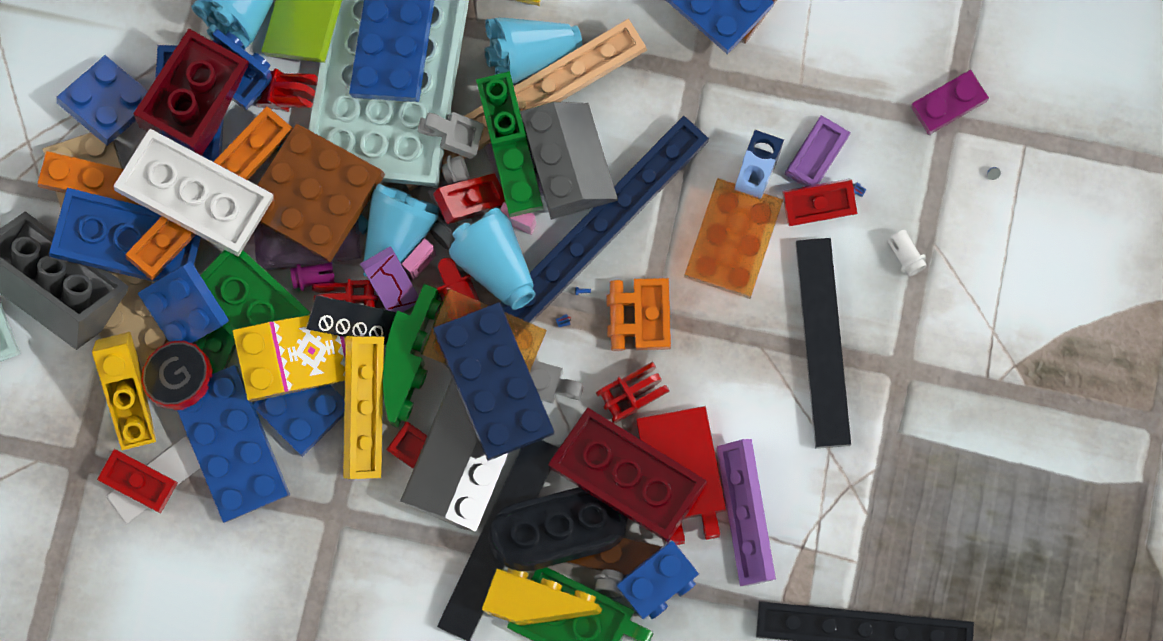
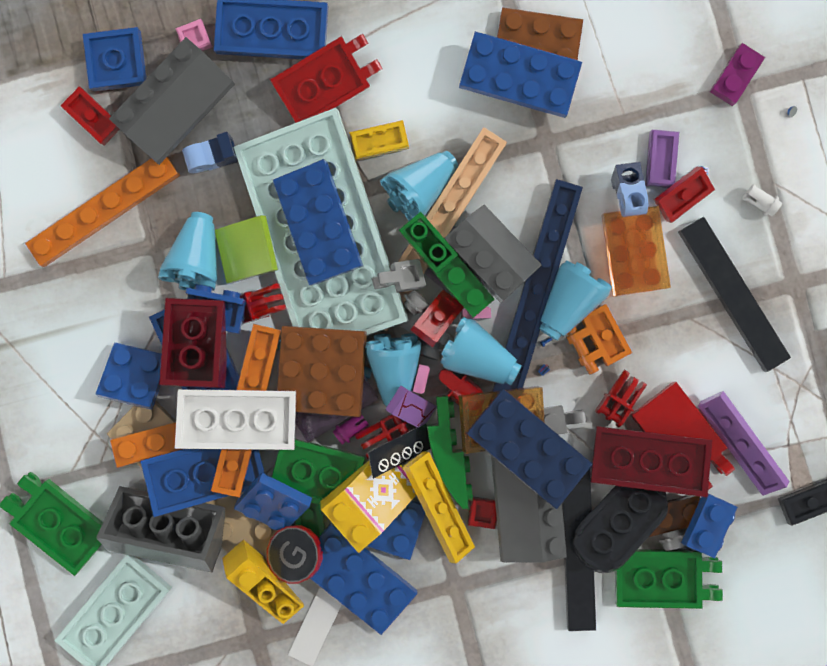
camera: 30 degrees left, 10 degrees up
(137, 481) = (305, 637): red plate -> none
(528, 602) = (635, 584): yellow slope -> none
(629, 251) = (572, 299): none -> medium azure cone

